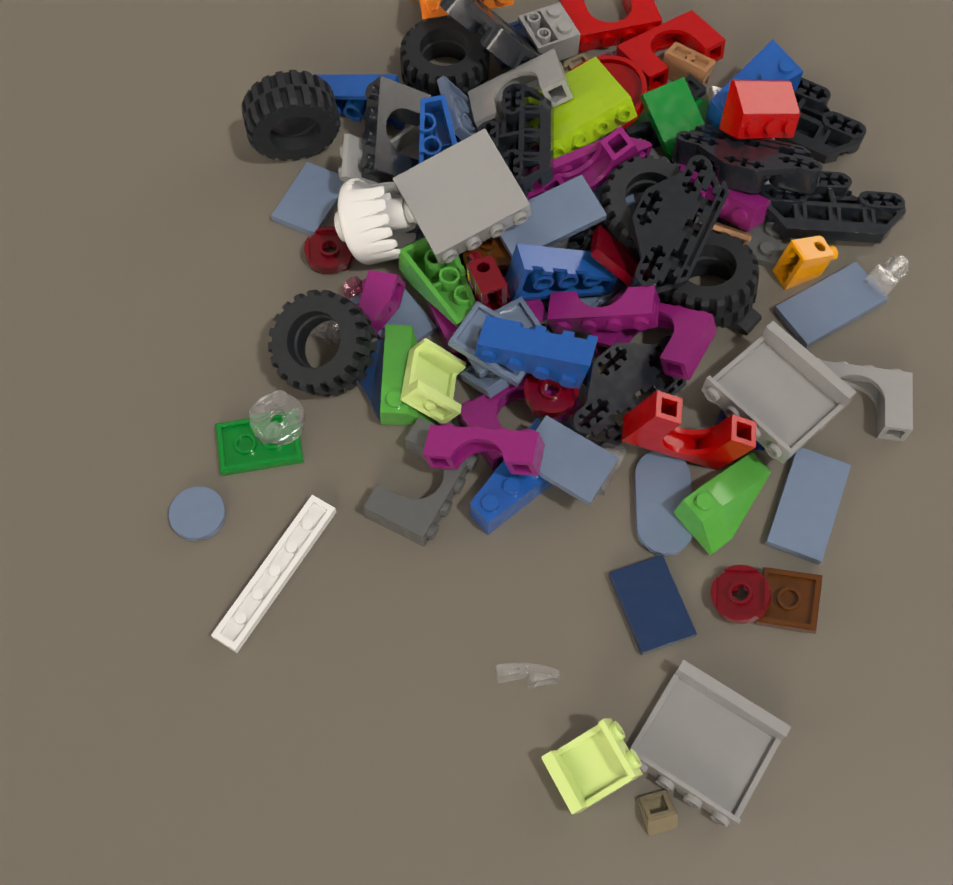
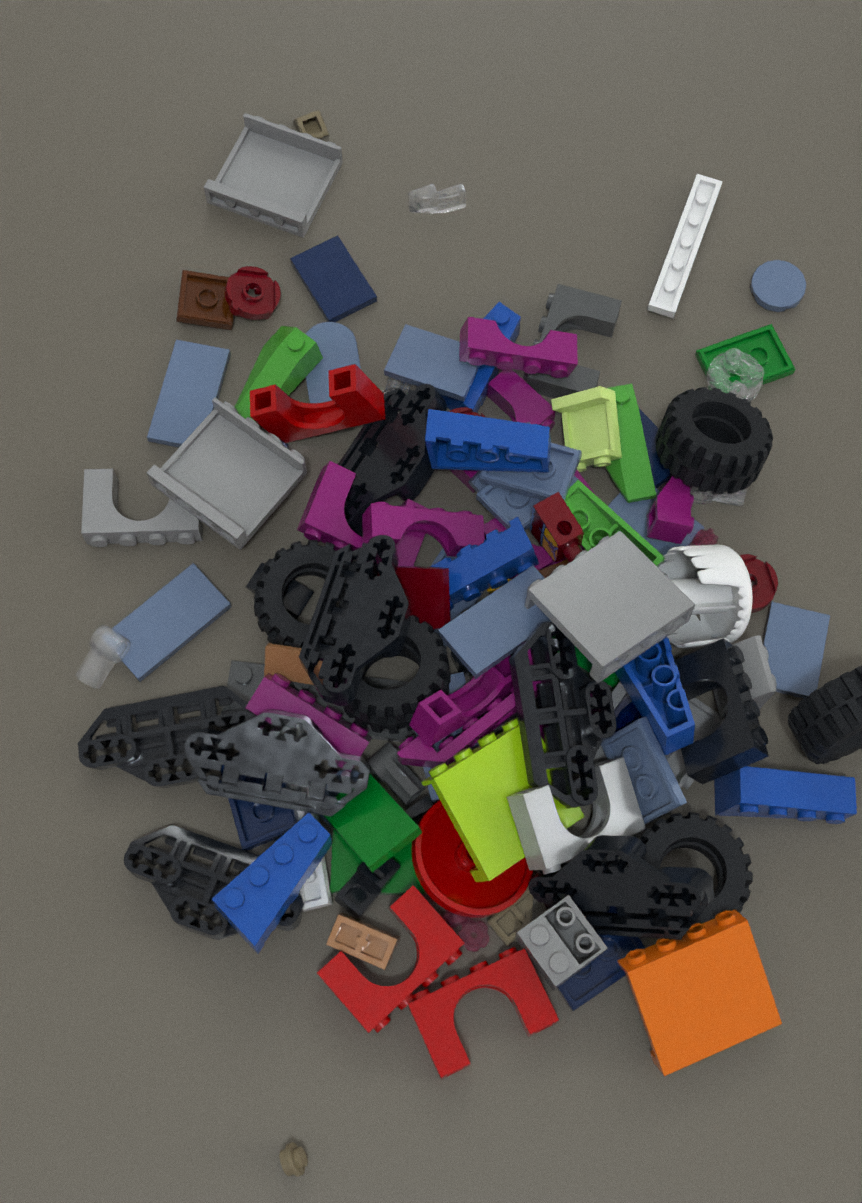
camera: 170 degrees right, 5 degrees up
(593, 765) = (371, 136): yellowish green panel -> none
(760, 109) = (263, 824): red slope -> none
(804, 261) = (197, 658): light orange torso -> none

